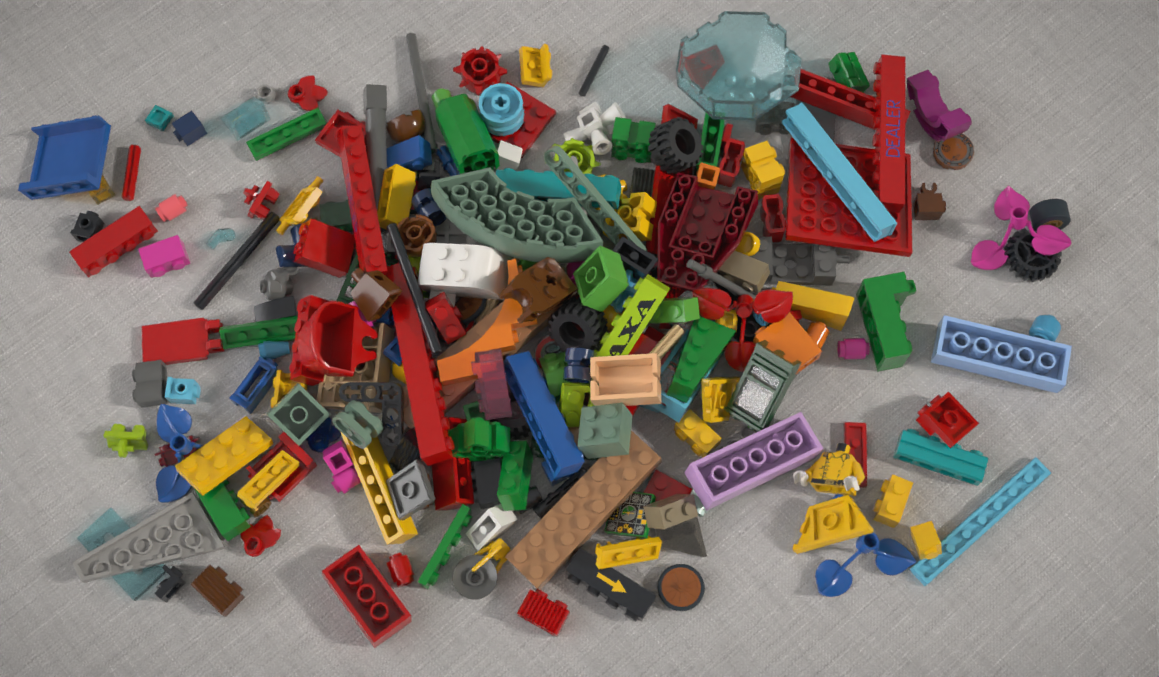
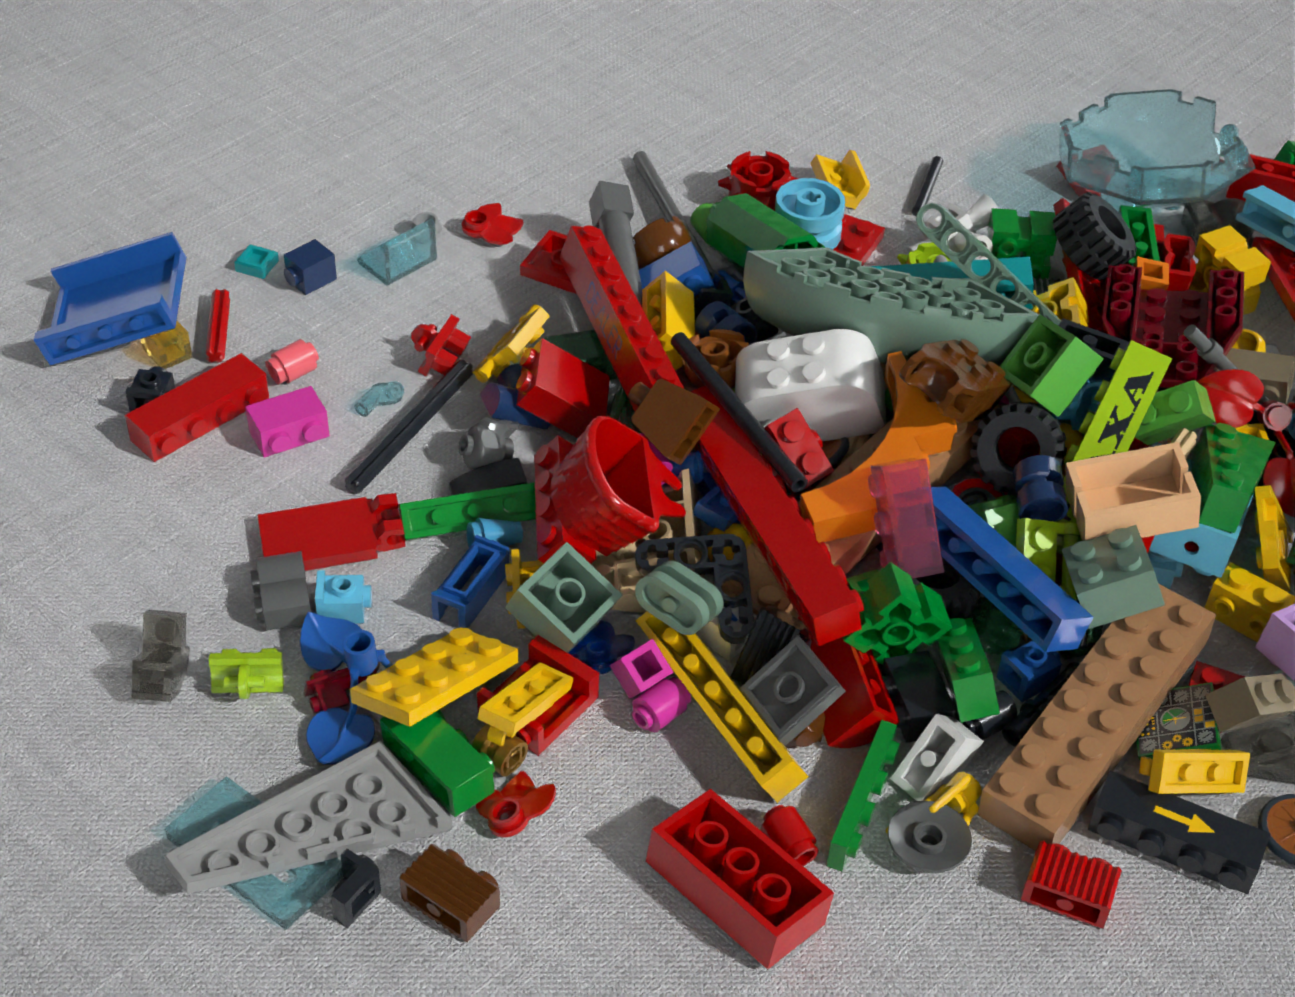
camera: 10 degrees left, 25 degrees down
(81, 430) = (164, 657): none -> clear smoke brick
(286, 134) = (467, 269): green plate -> none
(772, 217) = (1263, 316): red brick -> none

